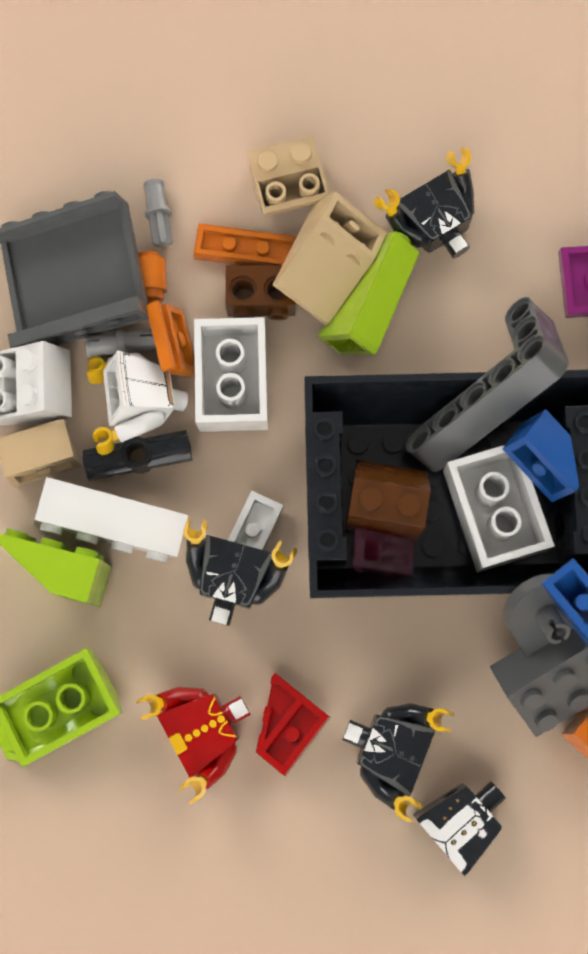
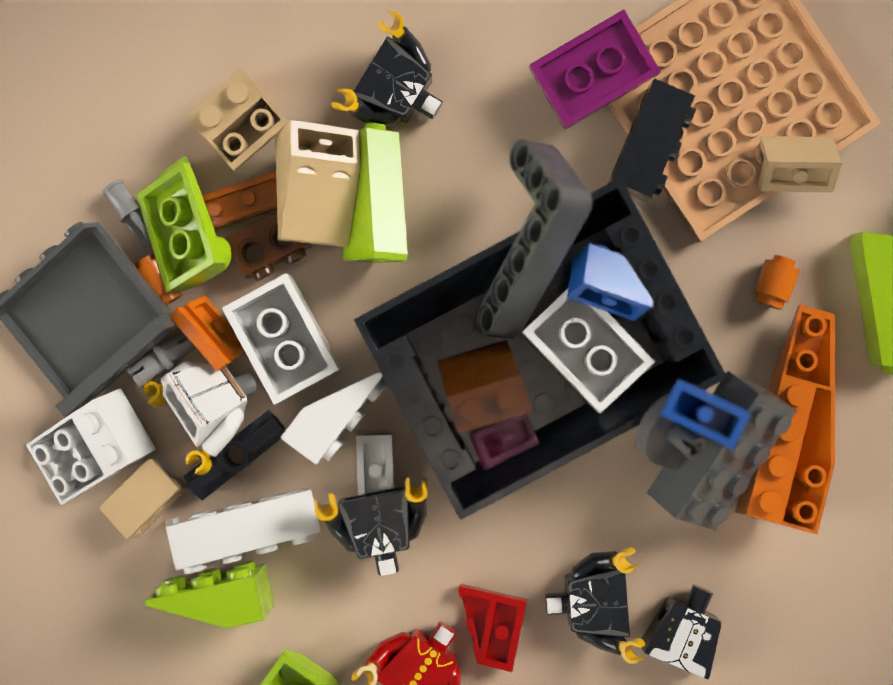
camera: 30 degrees left, 10 degrees up
(194, 243) = (182, 229): none -> lime slope
(242, 458) = (320, 424): none -> white slope

